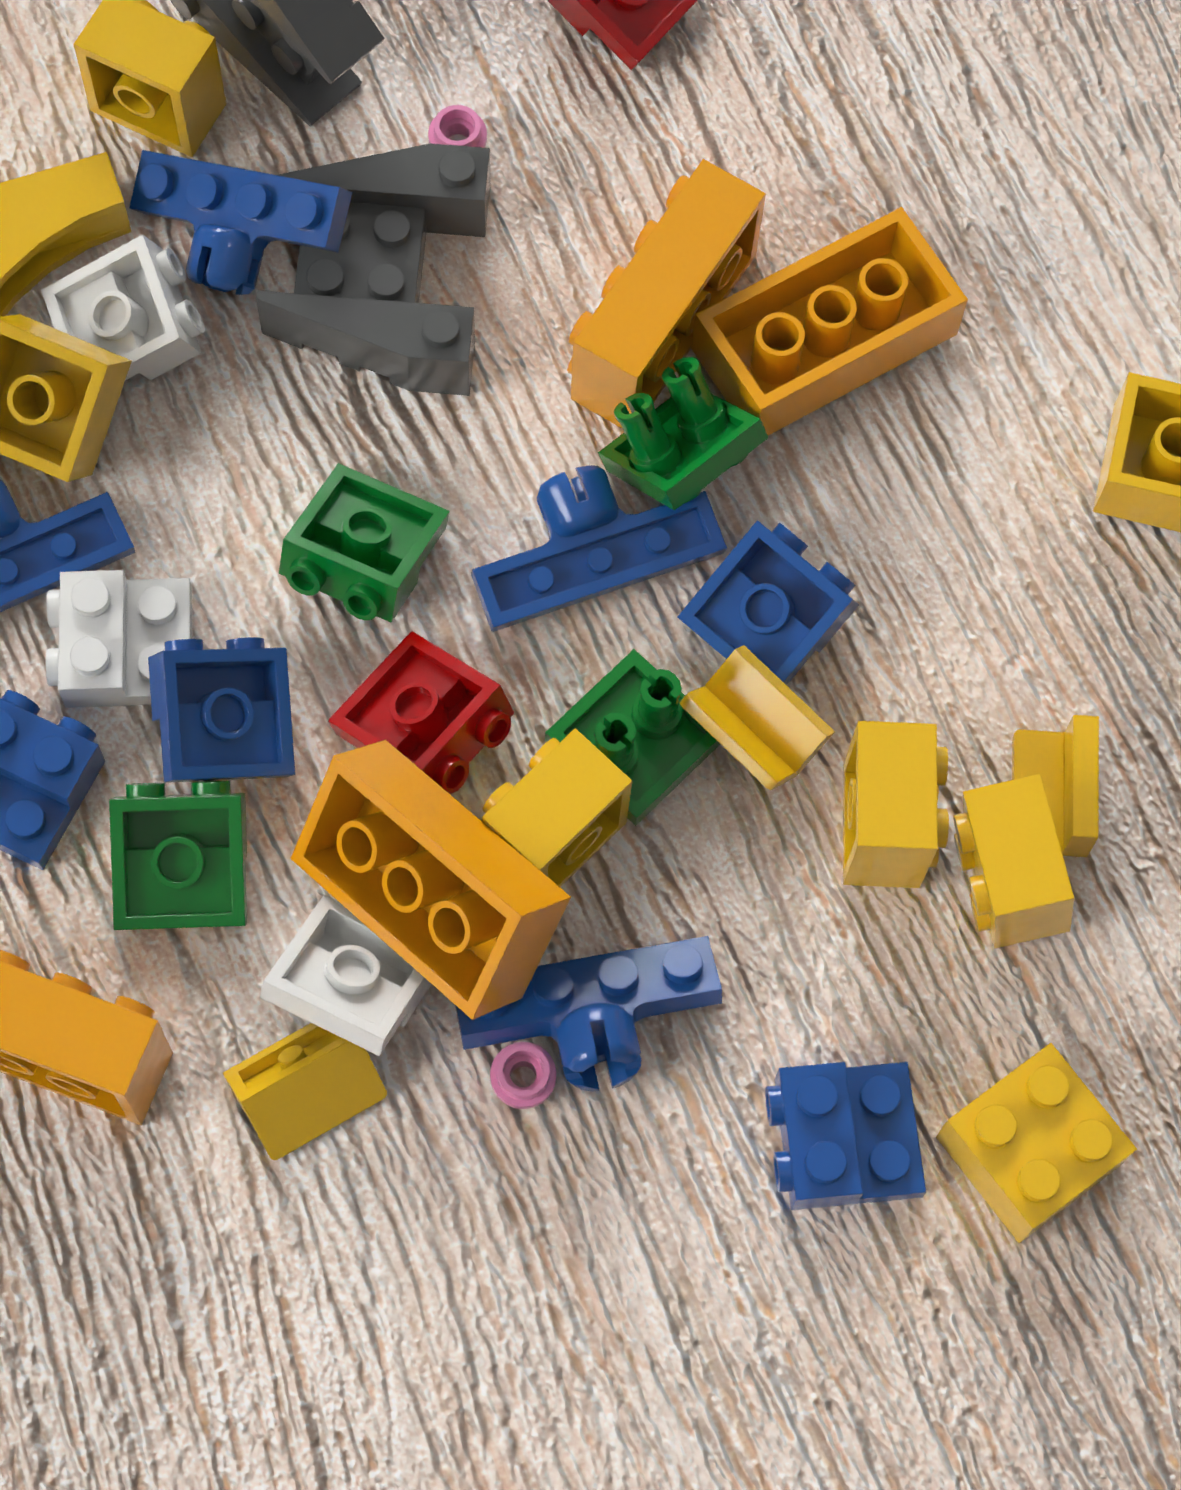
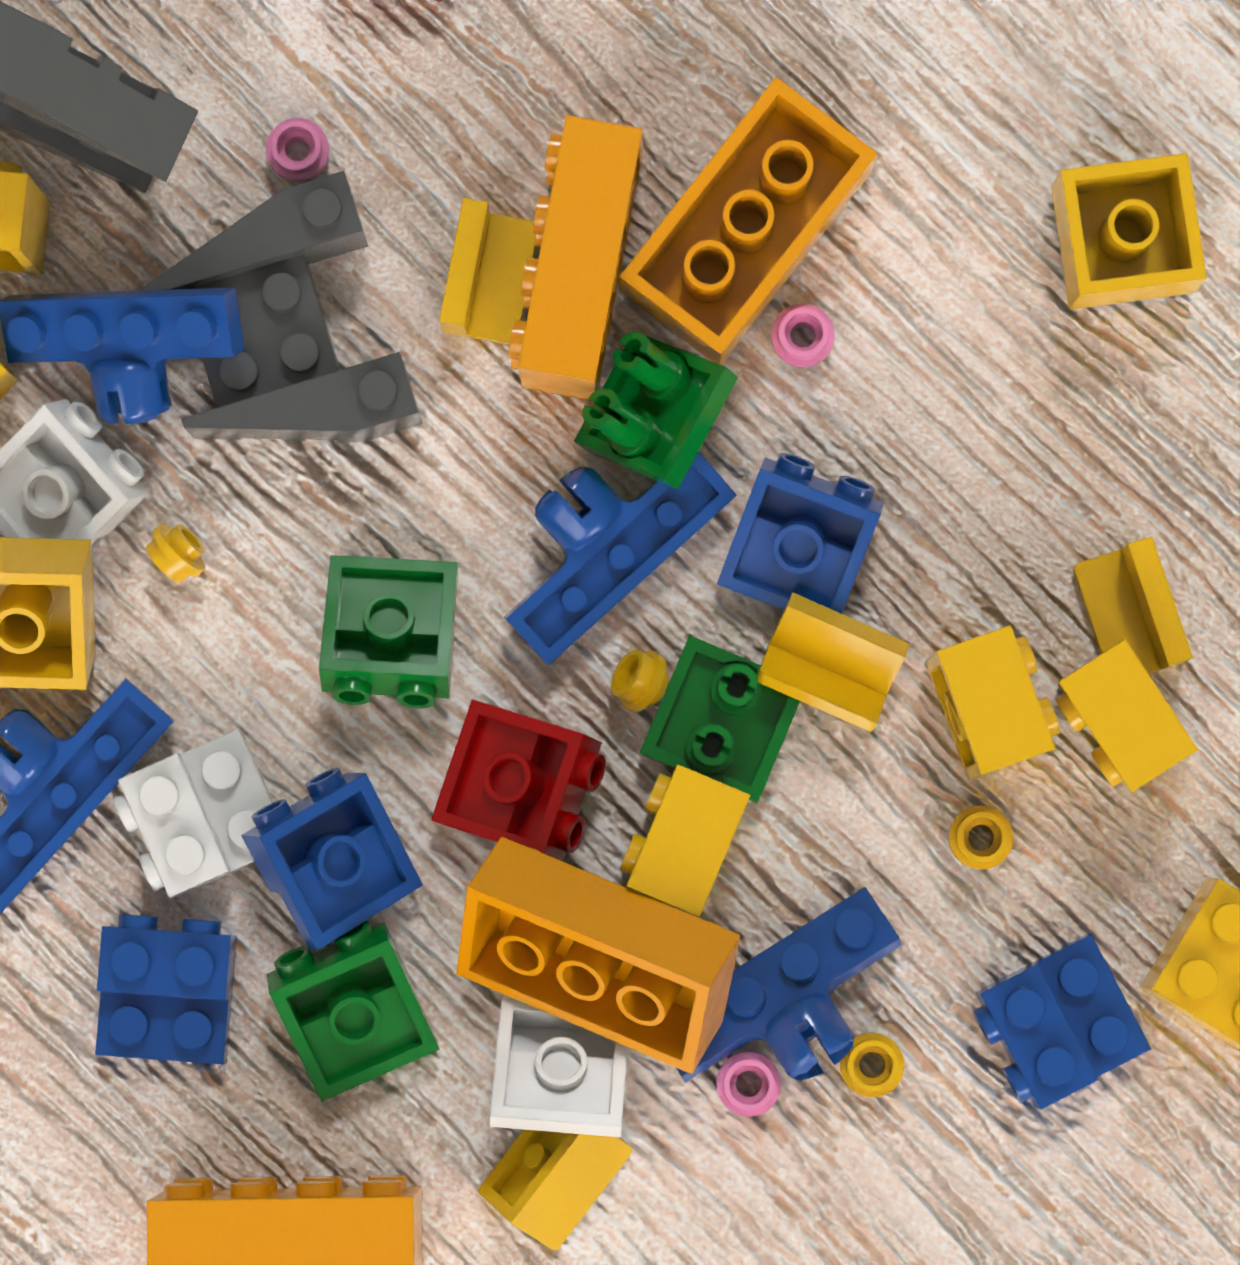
camera: 15 degrees left, 15 degrees up
(203, 410) = (176, 552): none -> yellow plate
(569, 284) = (486, 274): none -> yellow panel
(572, 672) = (640, 679): none -> yellow plate
(655, 1084) = (892, 1065): none -> yellow plate
(839, 917) = (1000, 831): none -> yellow plate
(846, 428) = (809, 317): none -> bright pink plate

